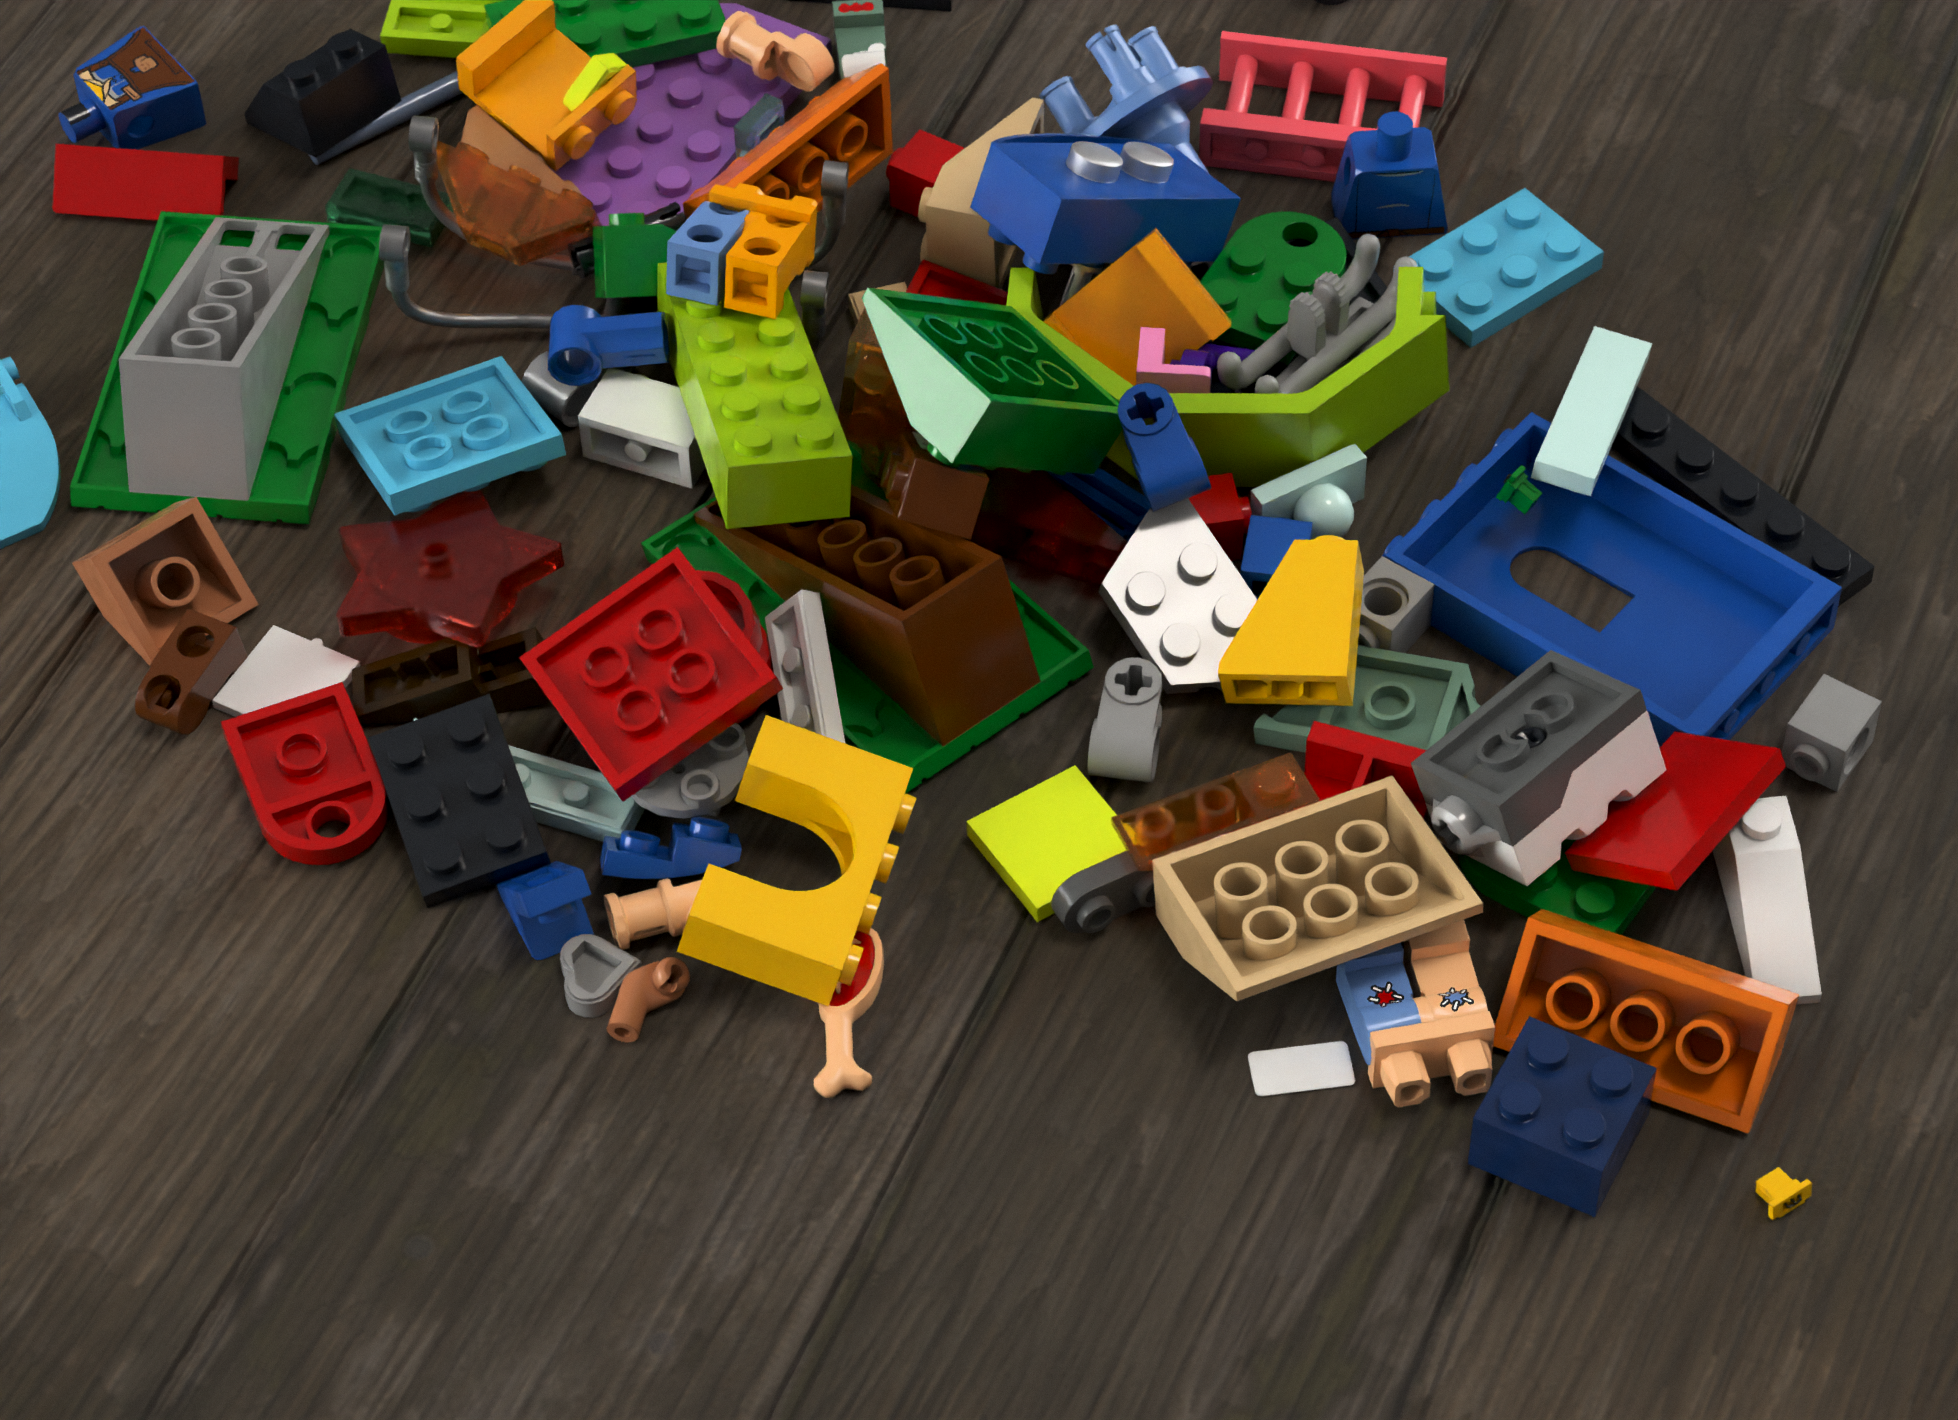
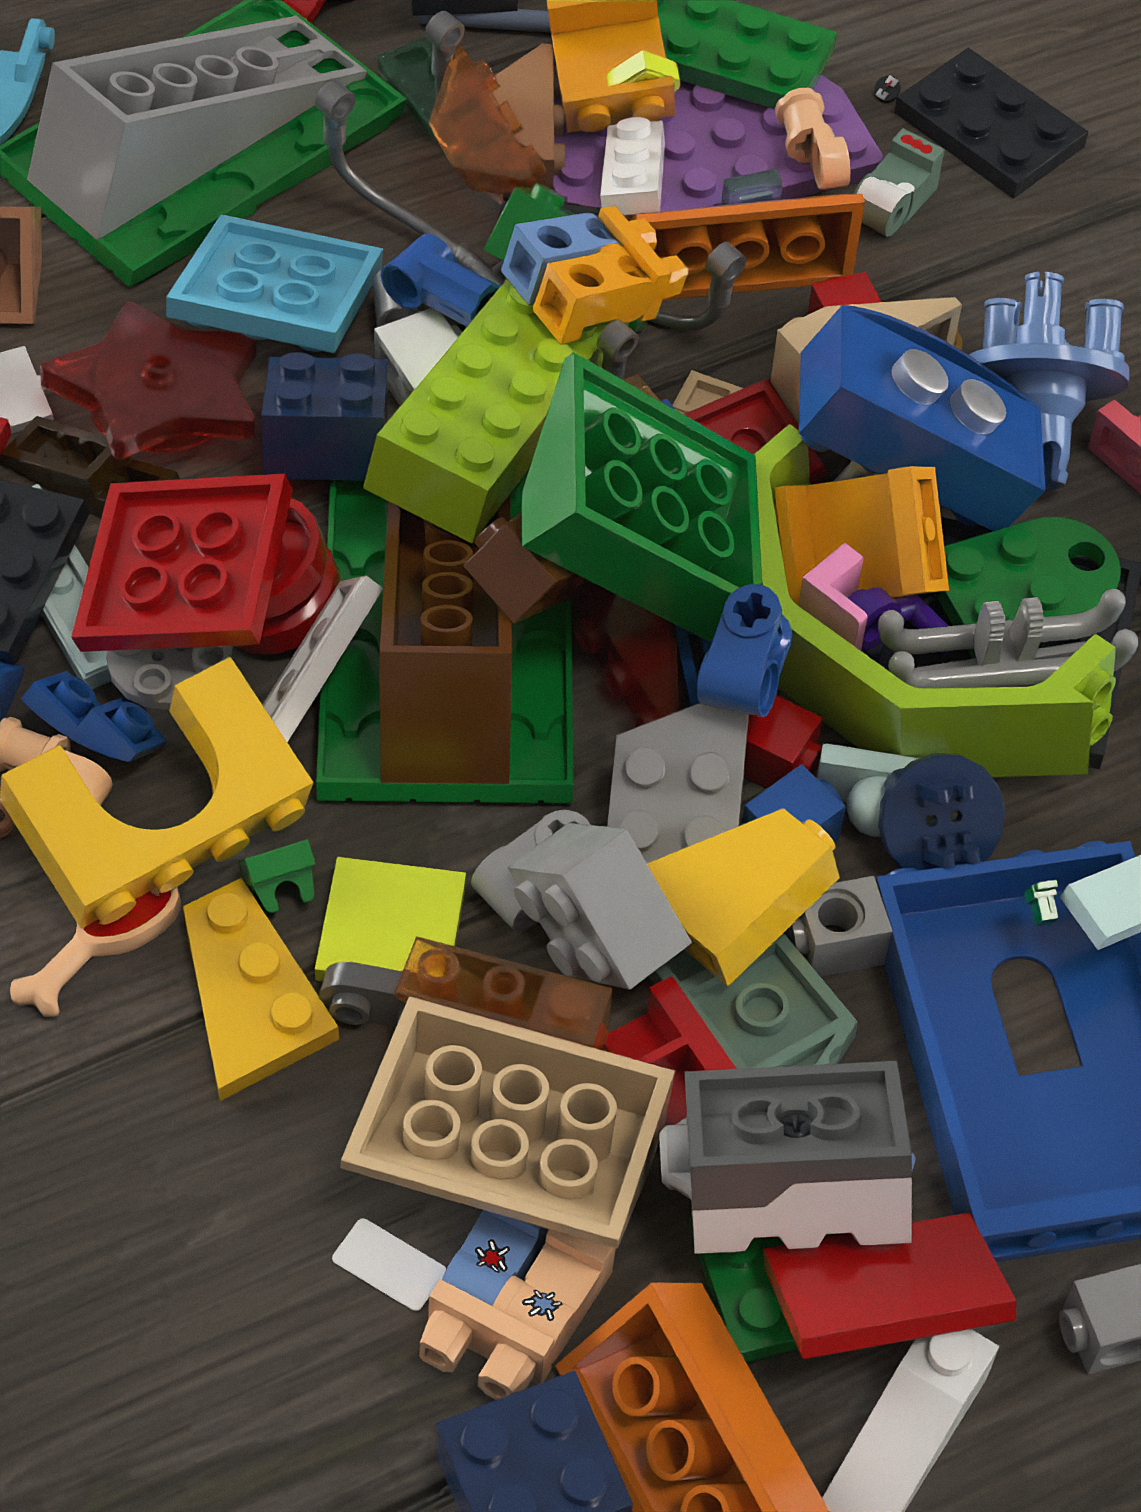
camera: 35 degrees right, 5 degrees up
(614, 507) = (323, 415): none -> dark blue brick
(662, 158) = (633, 166): none -> white plate
(931, 856) = (284, 864): none -> green tile
(1006, 959) = (251, 991): none -> yellow wing
(1221, 701) = (598, 905): none -> light grey brick
(1366, 468) = (938, 787): none -> dark blue plate

